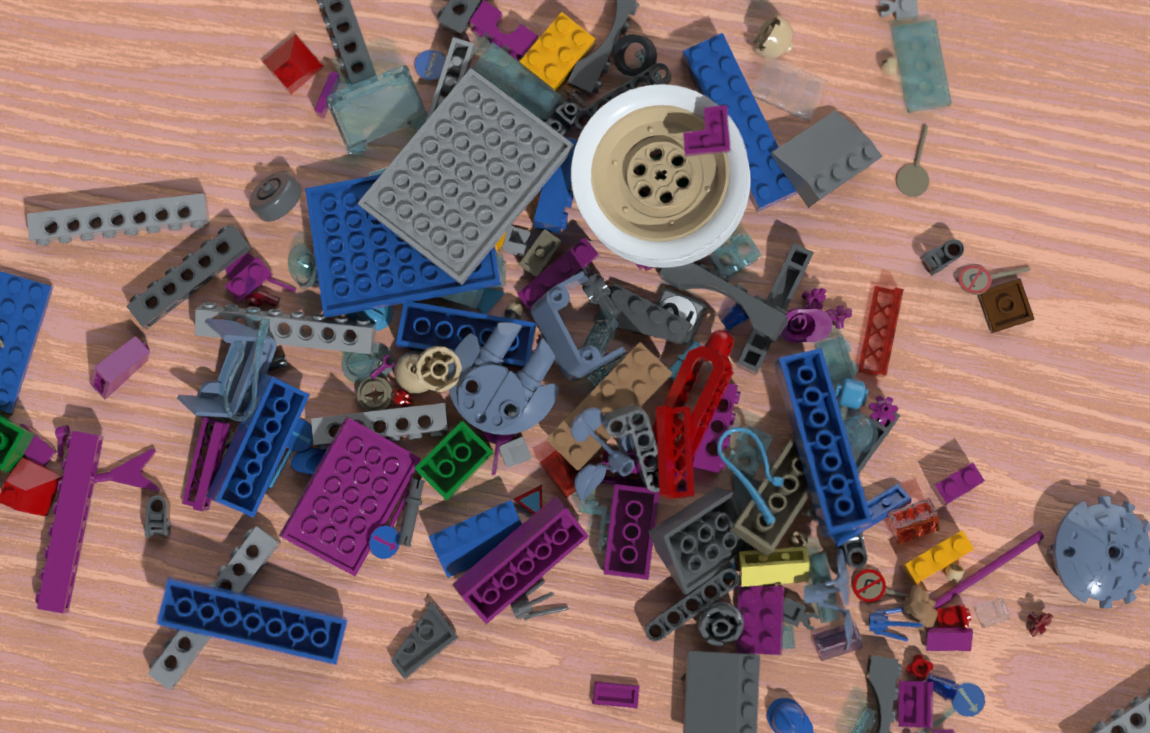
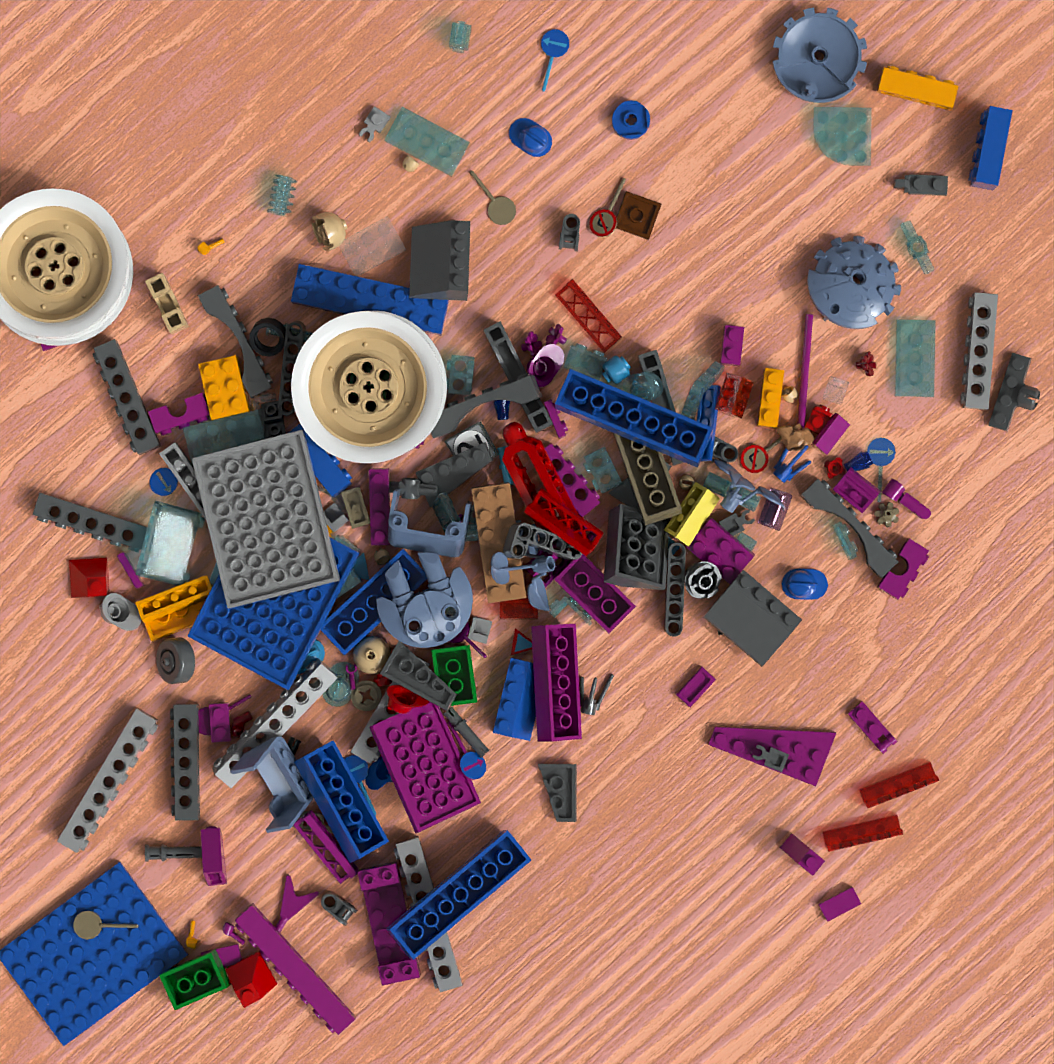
camera: 50 degrees left, 5 degrees up
(25, 406) = (191, 942): none -> light orange hand
(90, 320) = (163, 852): none -> dark grey pin
(191, 560) = (385, 905): none -> magenta plate
(259, 346) = (276, 749): clear light blue piece -> none
(282, 113) = (120, 612): none -> light grey piece
(303, 266) = (240, 678): clear light blue piece -> none
(320, 158) = (174, 608): none -> light orange slope
(399, 430) = (403, 700): none -> red piece
(426, 425) = (415, 676): none -> dark grey wing
(437, 378) = (388, 645): tan cylinder -> none
(714, 138) = (373, 332): magenta plate -> none
(759, 381) = (559, 426): none -> magenta plate
(778, 481) = (635, 491): dark azure piece -> none
(879, 411) = (643, 363): magenta plant -> none
(897, 482) = (700, 386): none -> clear light blue beam
(999, 155) = (530, 137): none -> blue piece
(1040, 22) = (460, 37): none -> clear light blue brick
(1079, 664) = (915, 358): none -> clear light blue plate
(1083, 245) = (622, 113): none -> blue plate
(1099, 113) = (554, 44): none -> blue piece

